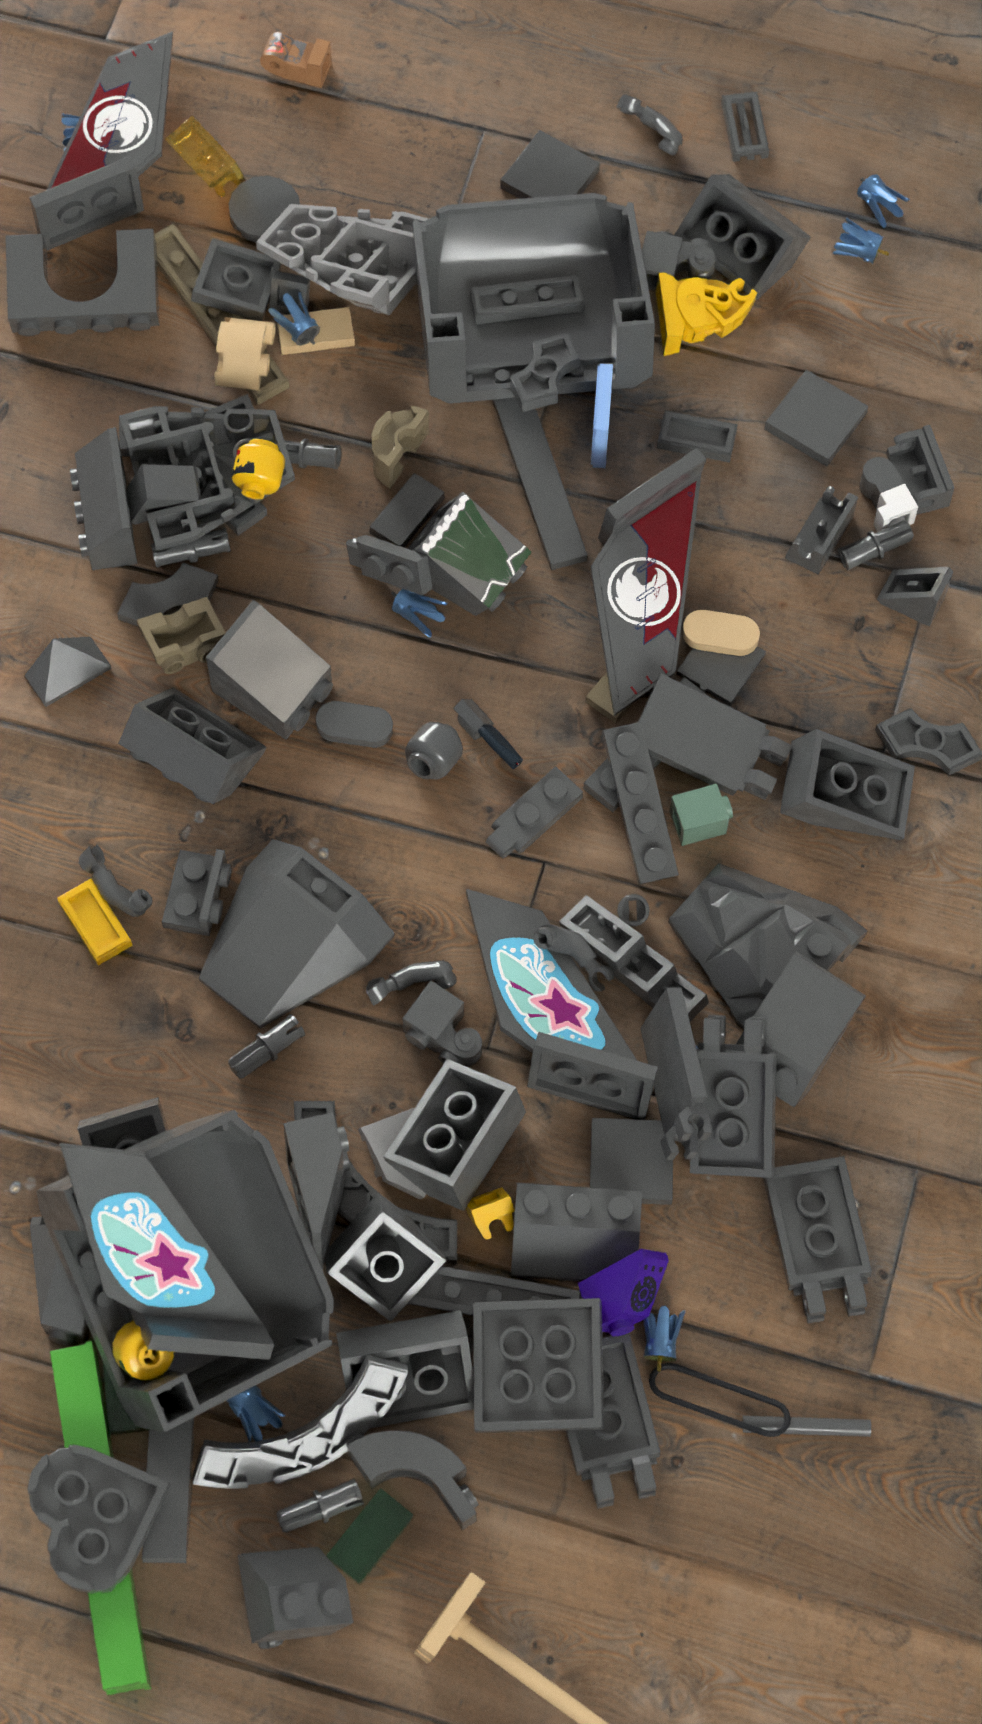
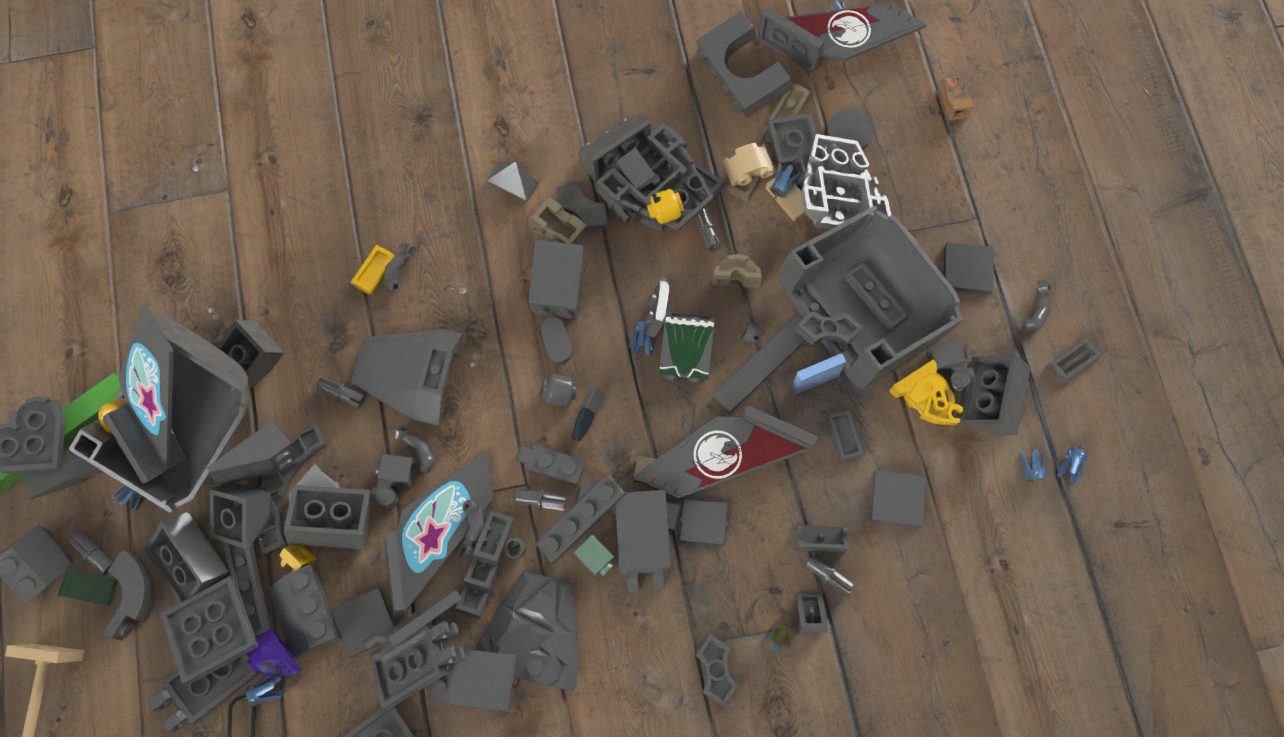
camera: 65 degrees right, 5 degrees up
(190, 745) = (497, 263): dark grey slope -> none
(195, 892) = (414, 311): dark grey bracket -> none
(205, 156) = (860, 83): clear yellow hinge -> none
(311, 1445) = (121, 531): tile -> none
(407, 511) = (702, 301): dark grey tile -> none
(489, 474) = (750, 332): none -> dark grey hinge
(580, 847) = (541, 499): none -> dark grey axle
(721, 632) = (719, 512): tan tile -> none
(846, 786) = (656, 636): dark grey slope -> none
(888, 493) = (873, 559): leg -> none
(922, 469) = (895, 578): dark grey hinge -> none
(928, 637) = (780, 636): none -> clear yellow piece

